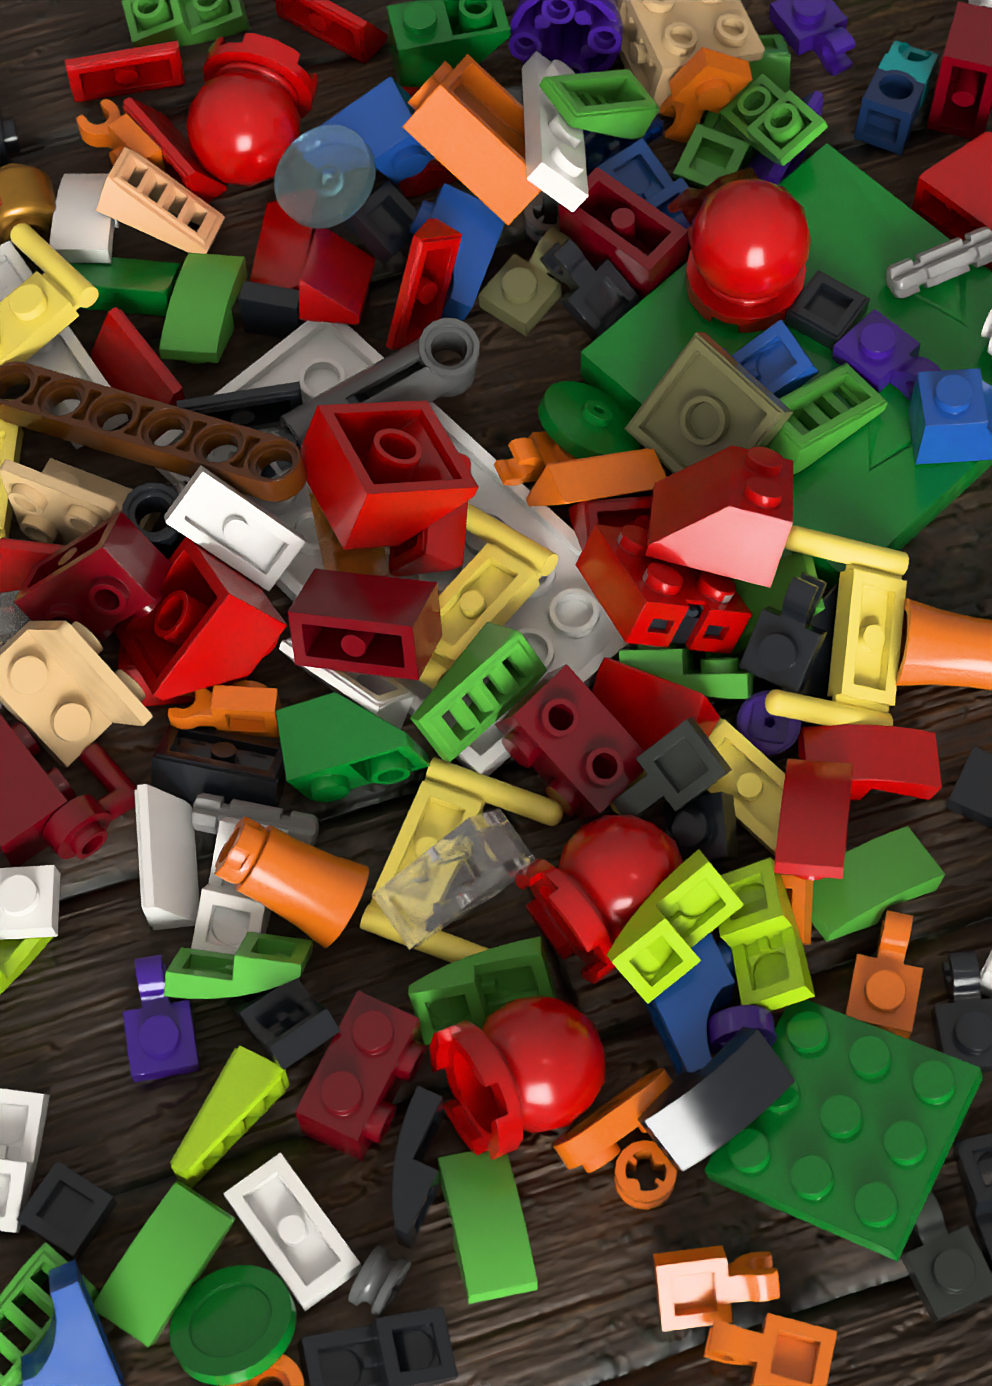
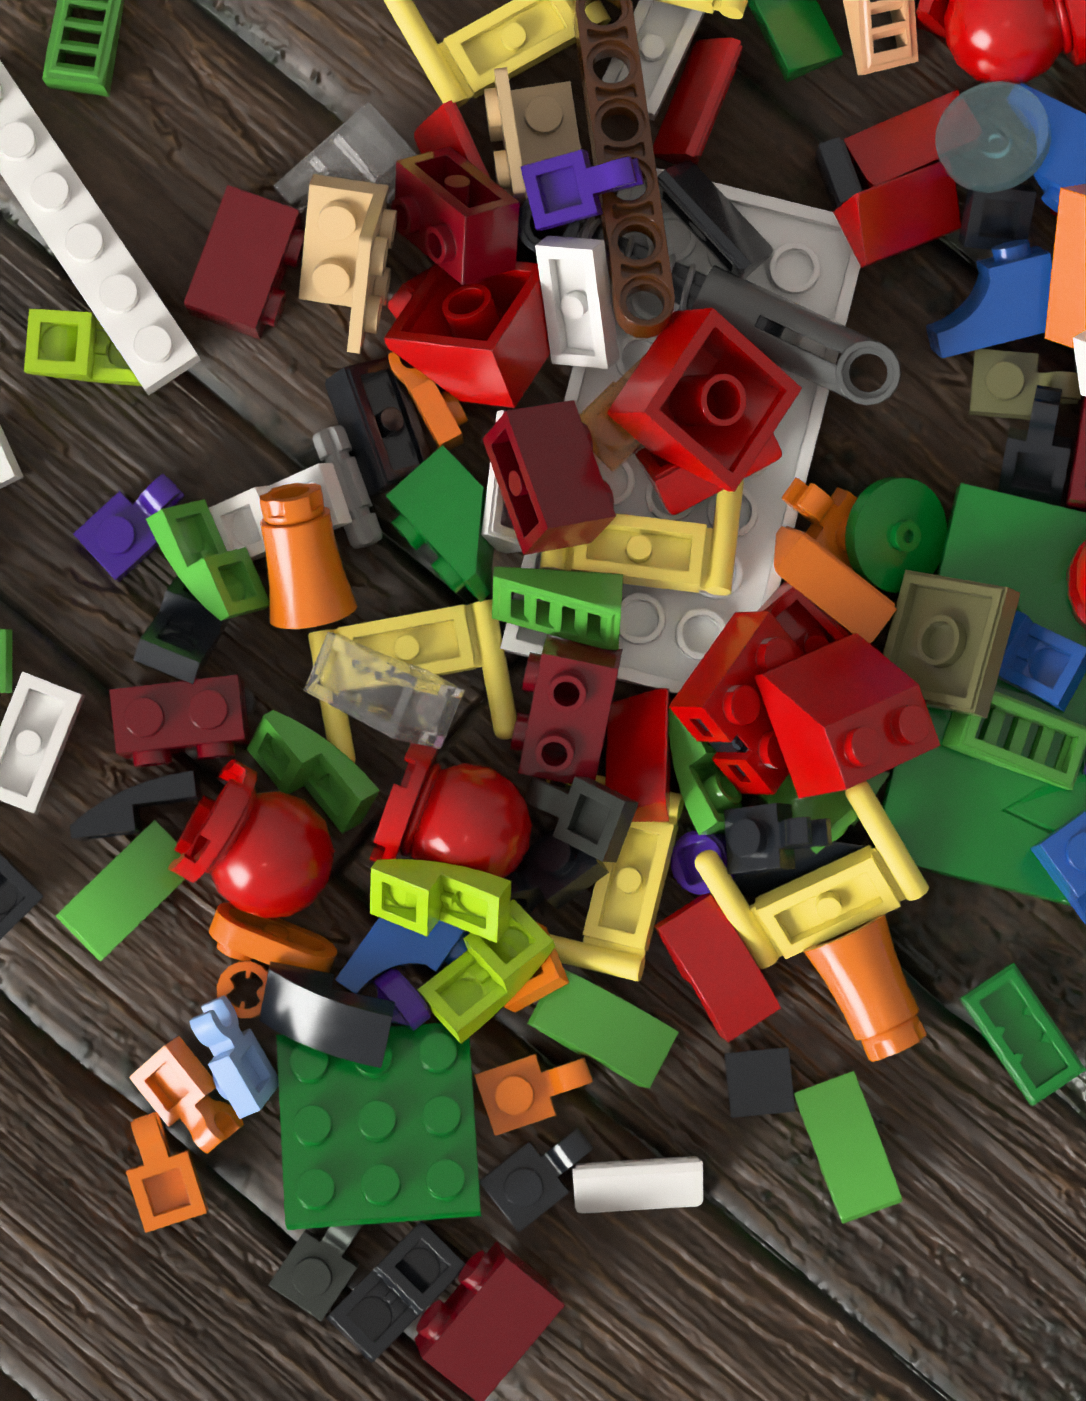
camera: 60 degrees right, 20 degrees up
(82, 823) = (251, 349): dark red plate -> none
(139, 466) = (568, 187): none -> dark purple plate
(166, 859) = (269, 436): white slope -> none
(201, 308) = (803, 108): bright green slope -> none
(235, 1103) = (98, 631): lime slope -> none
(379, 1281) = (31, 836): dark grey bush -> none
(424, 282) = (934, 302): red slope -> none
(717, 1216) = (239, 1062): none -> light blue plate
(814, 819) = (612, 956): red slope -> none

